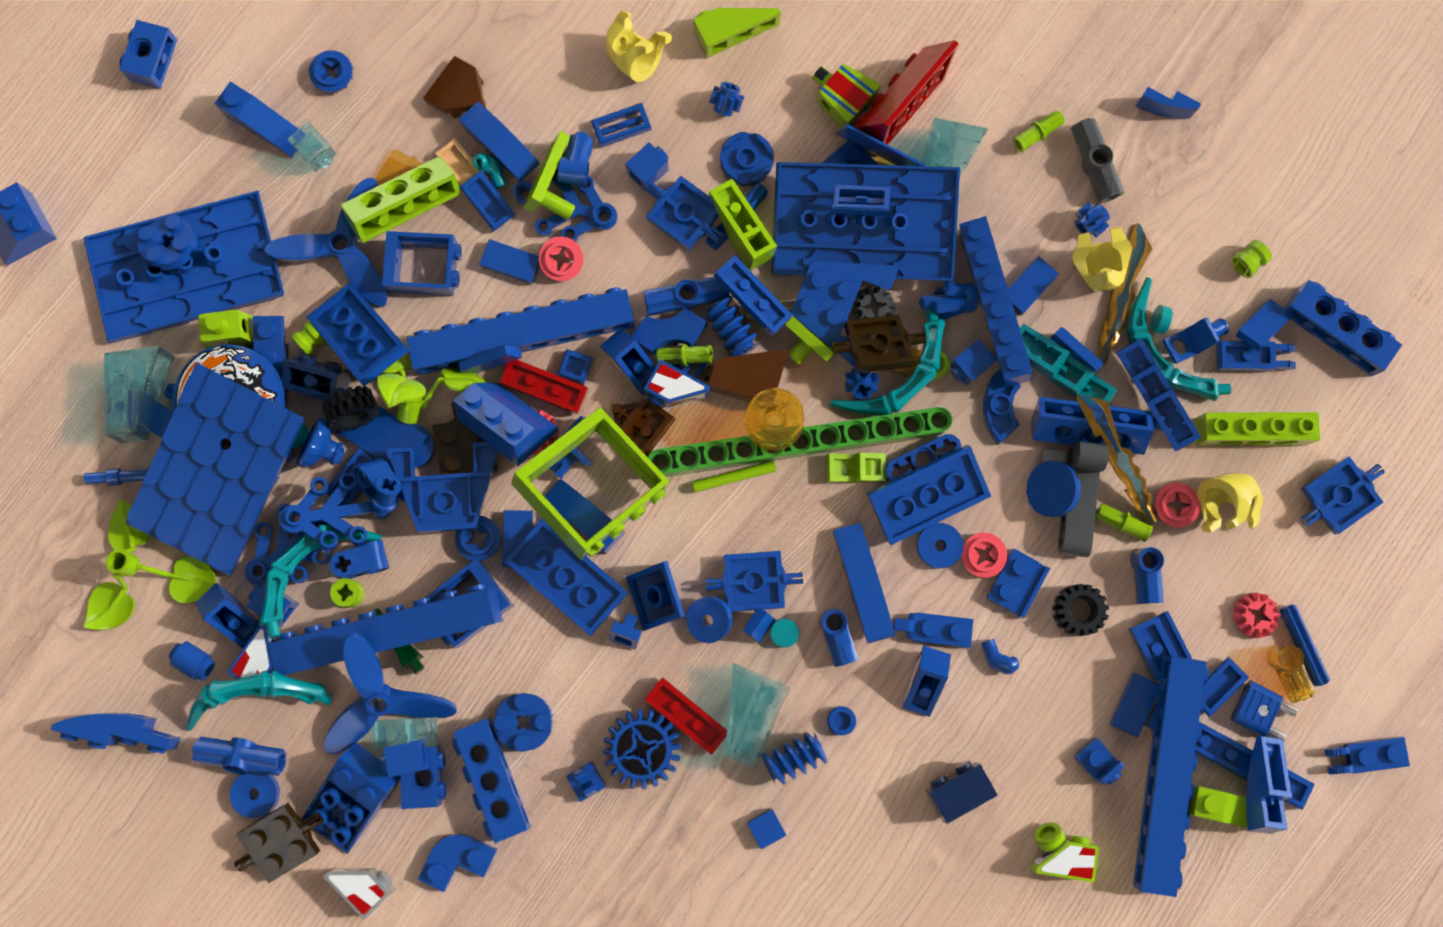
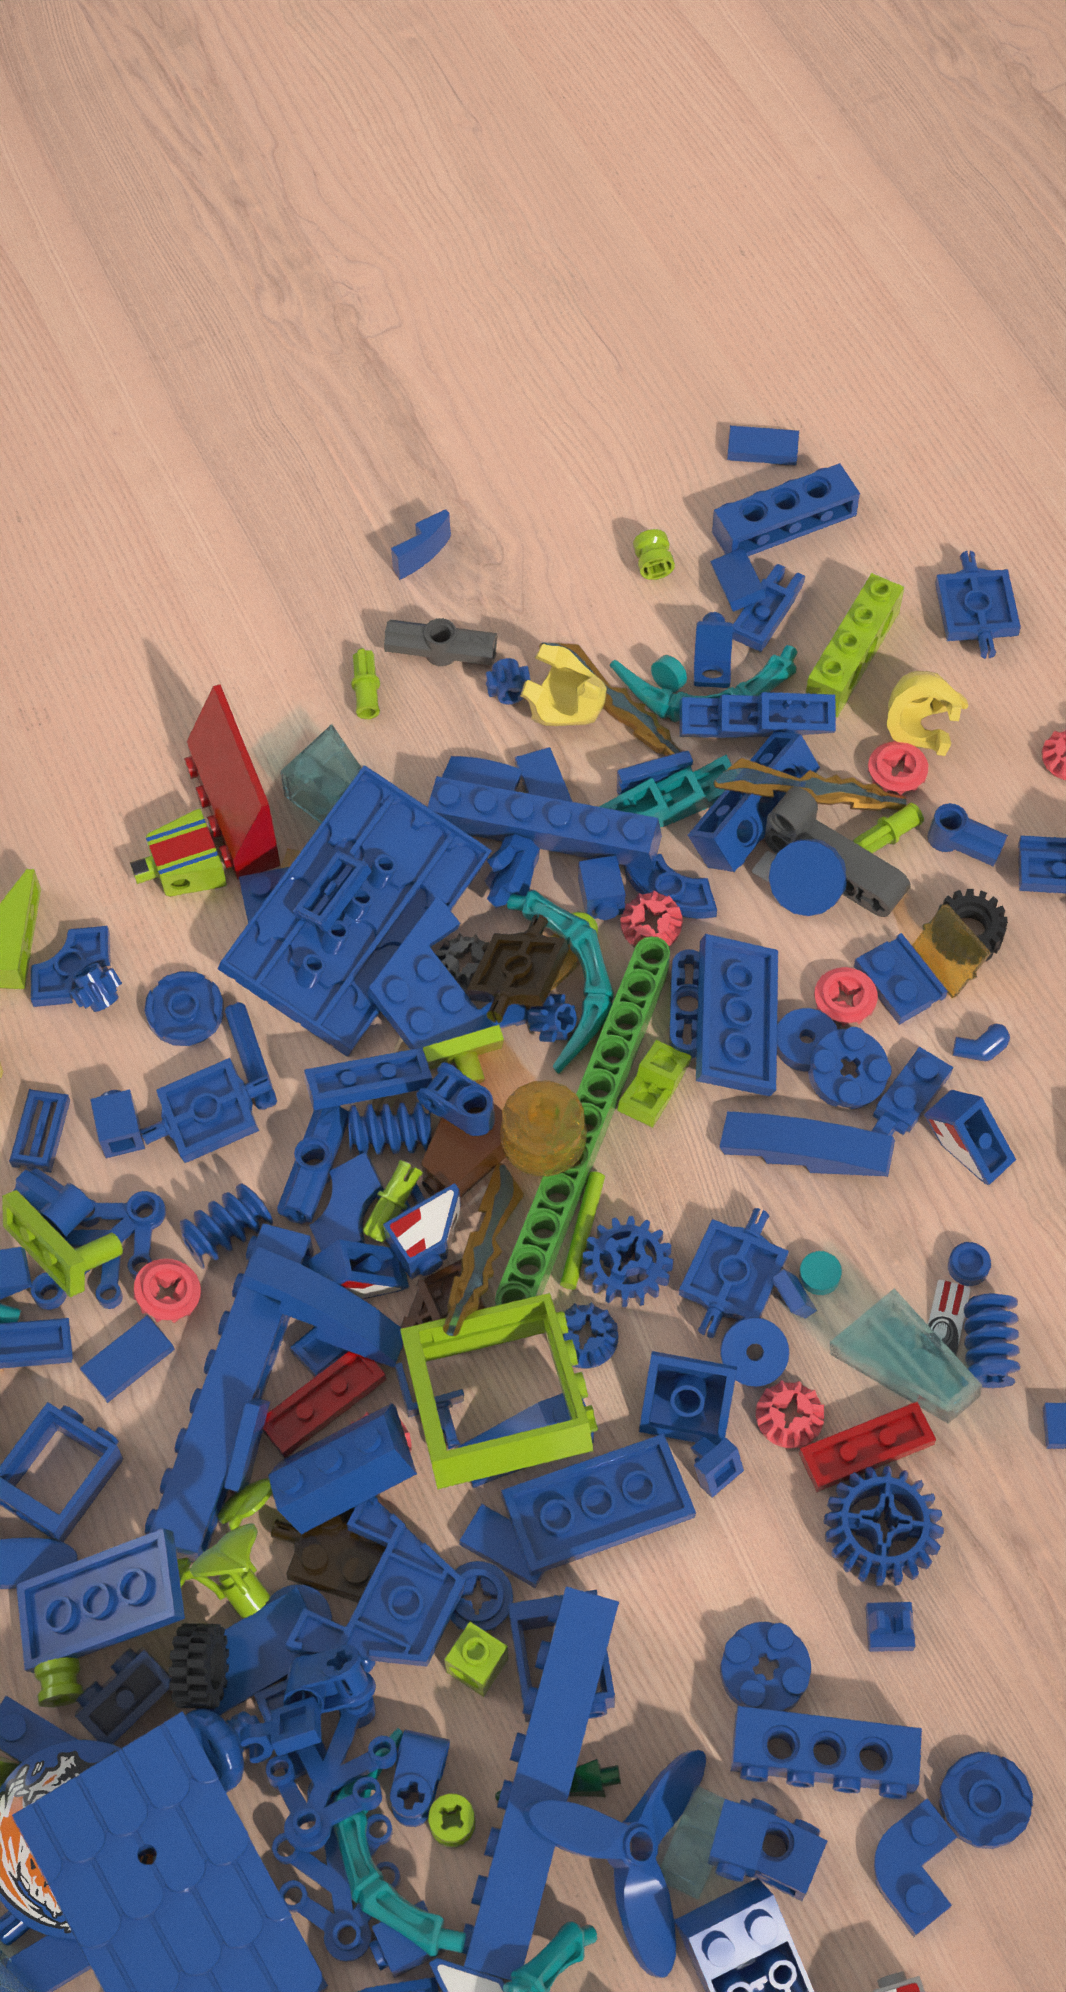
camera: 55 degrees left, 20 degrees down
(339, 479) = (289, 1730): none -> blue plate
(439, 557) = (476, 1659): none -> lime brick
(514, 883) = (986, 1800): none -> blue tile
(593, 354) = (316, 1300): none -> blue slope
(617, 267) = (223, 1223): none -> blue piece
(679, 520) = (597, 1349): none -> blue gear
(681, 425) = (481, 1248): none -> pearl gold sword
(695, 667) = (801, 1430): none -> coral gear
(725, 502) = (618, 1246): none -> blue gear
(742, 225) = (270, 1046): lime slope -> none
(748, 76) = (54, 978): none -> blue tile
(765, 353) = (453, 1095): none -> blue piece
(799, 723) = (948, 1312): none -> sticker
(838, 640) = (862, 1211): blue piece -> none
(877, 147) = (272, 848): blue piece -> none
(924, 567) = (846, 1090): none -> blue plate
(969, 418) = (634, 914): none -> coral gear
(1009, 243) = (483, 772): none -> blue slope
(1051, 606) = (951, 950): none -> clear yellow piece
(1392, 283) = (763, 445): none -> blue tile

